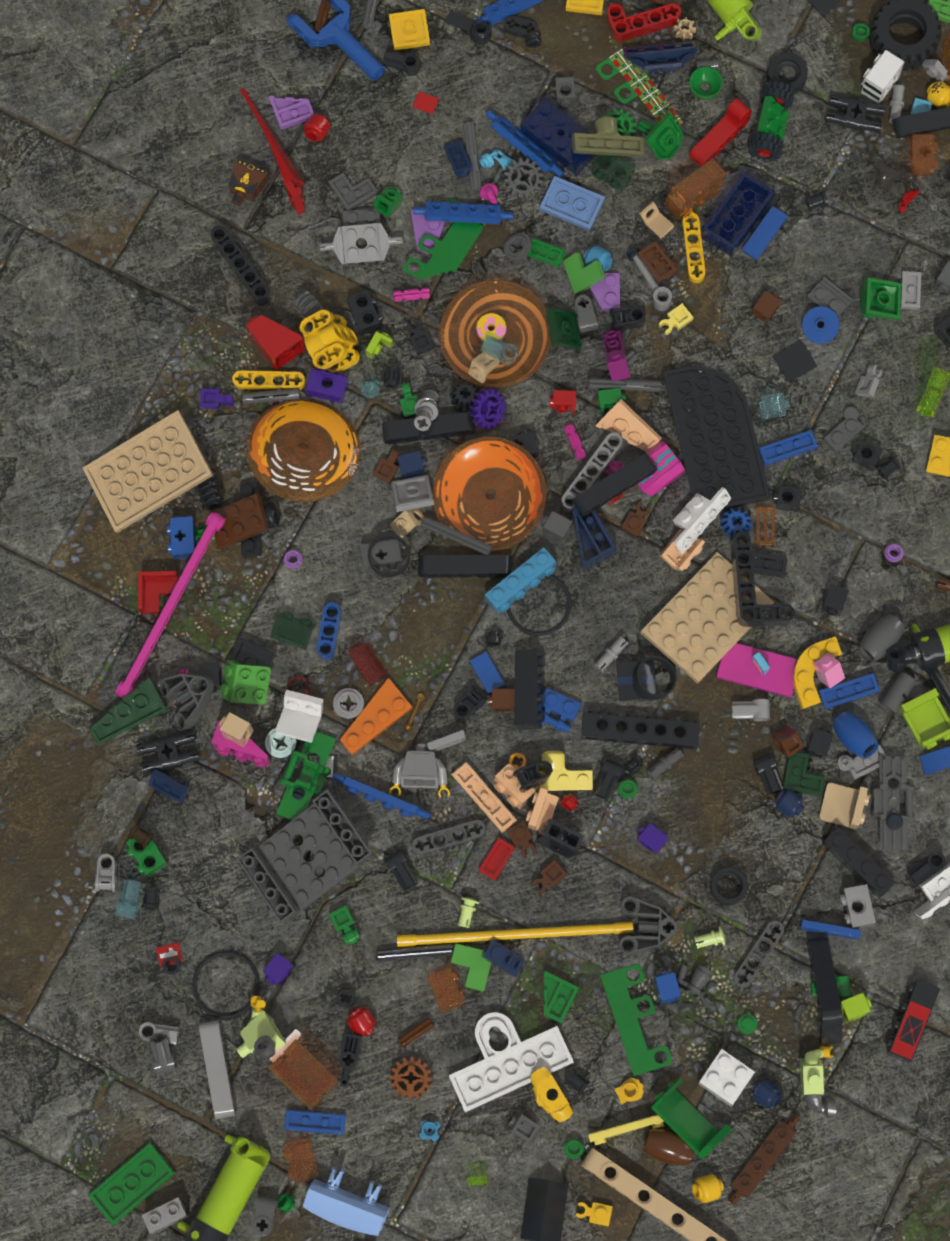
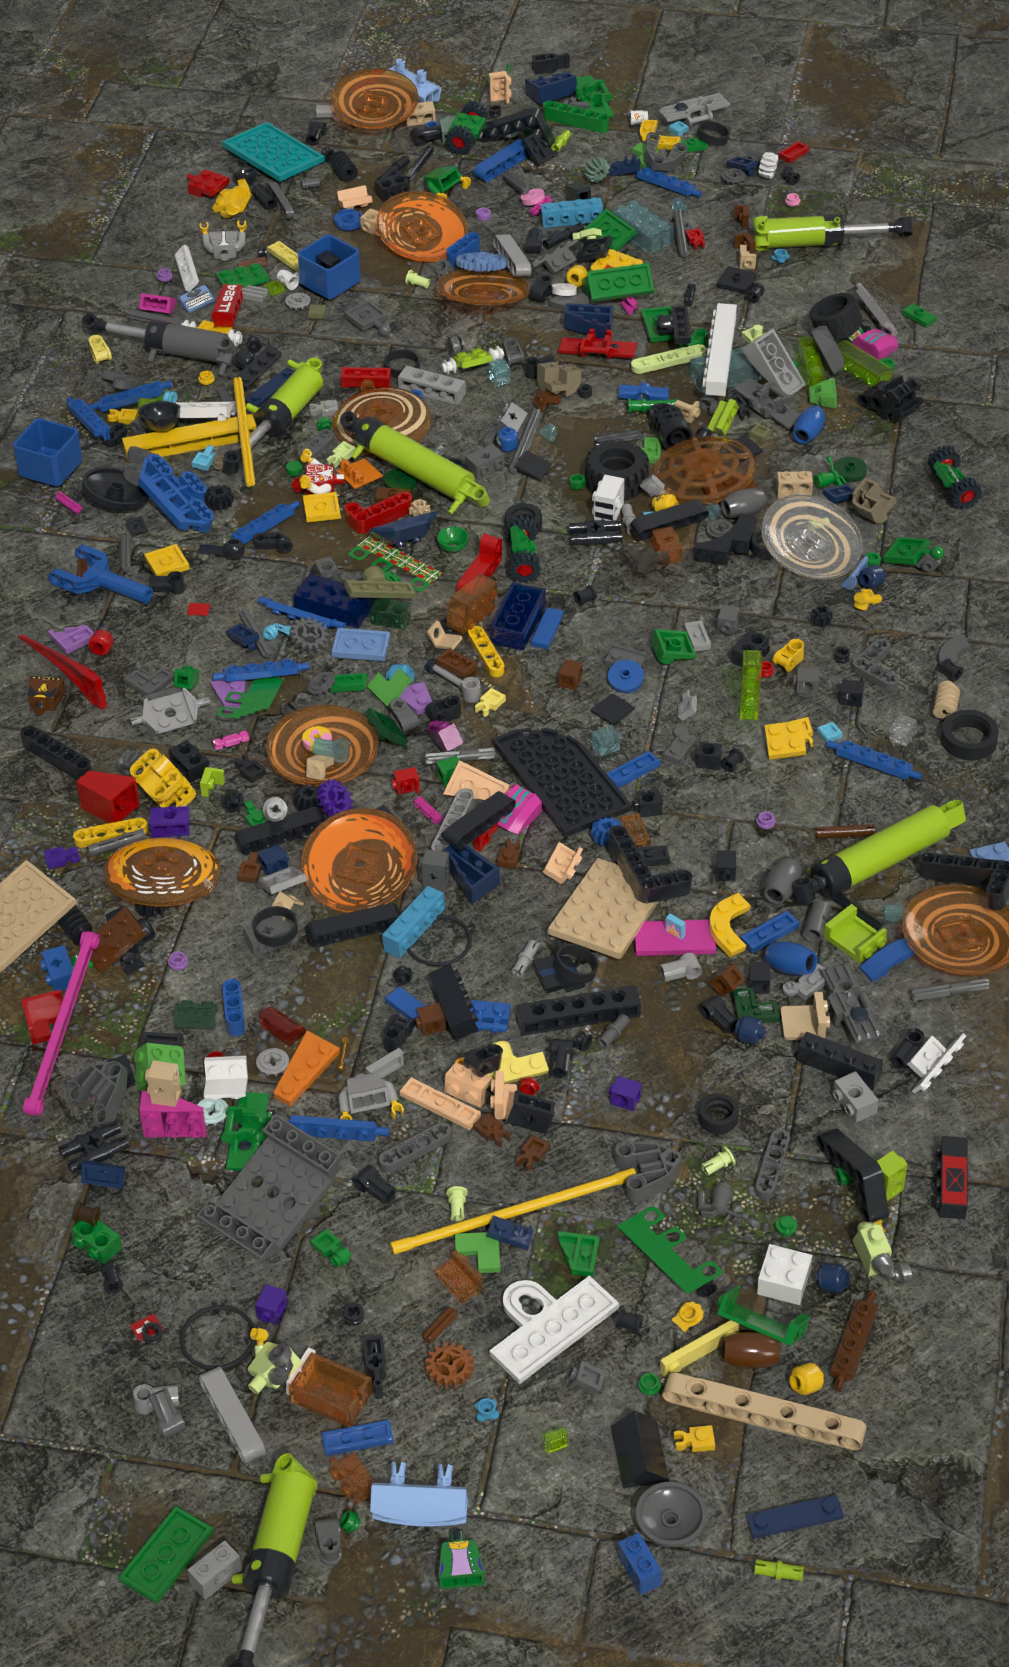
camera: 20 degrees left, 30 degrees down
(106, 877) = (57, 1269): light grey piece -> none
(128, 904) = (88, 1290): clear light blue piece -> none
(133, 709) = (45, 1119): dark green wing -> none
(361, 1021) = (377, 1325): red head -> none
(370, 388) = (213, 815): clear light blue plate -> none
(414, 952) = (413, 1254): black axle -> none
(456, 536) = (336, 901): dark grey axle -> none
(489, 192) = (279, 652): dark pink plate -> none
(496, 859) = (471, 1153): red tile -> none
(542, 1082) = (618, 1350): yellow piece -> none
(627, 788) = (583, 1061): green plate -> none
(663, 138) = (428, 579): green piece -> none
(667, 987) = (691, 1209): blue brick -> none
(698, 516) = (569, 830): white bracket -> none
(829, 670) = (743, 916): bright pink brick -> none
(830, 929) = (843, 1121): blue tile -> none
(907, 198) = (666, 578): red piece -> none

